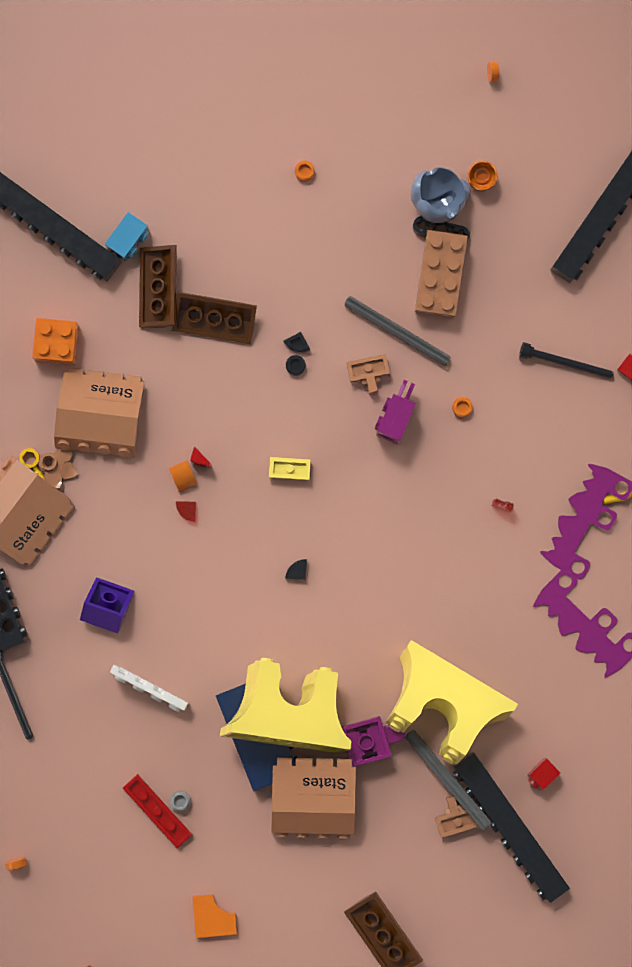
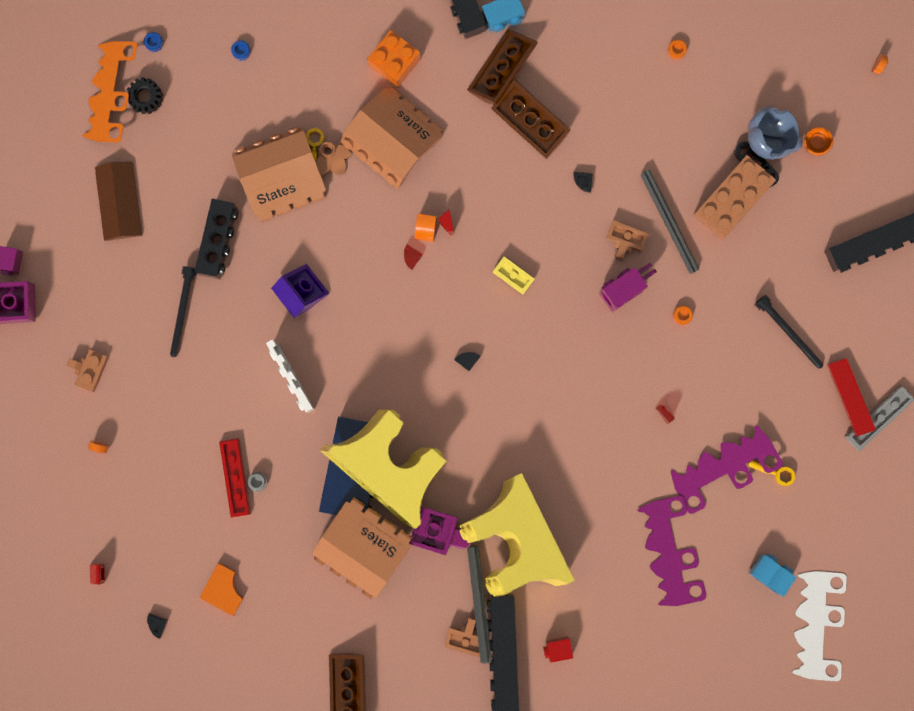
camera: 45 degrees right, 0 degrees up
(295, 365) = (571, 197): black tile -> none

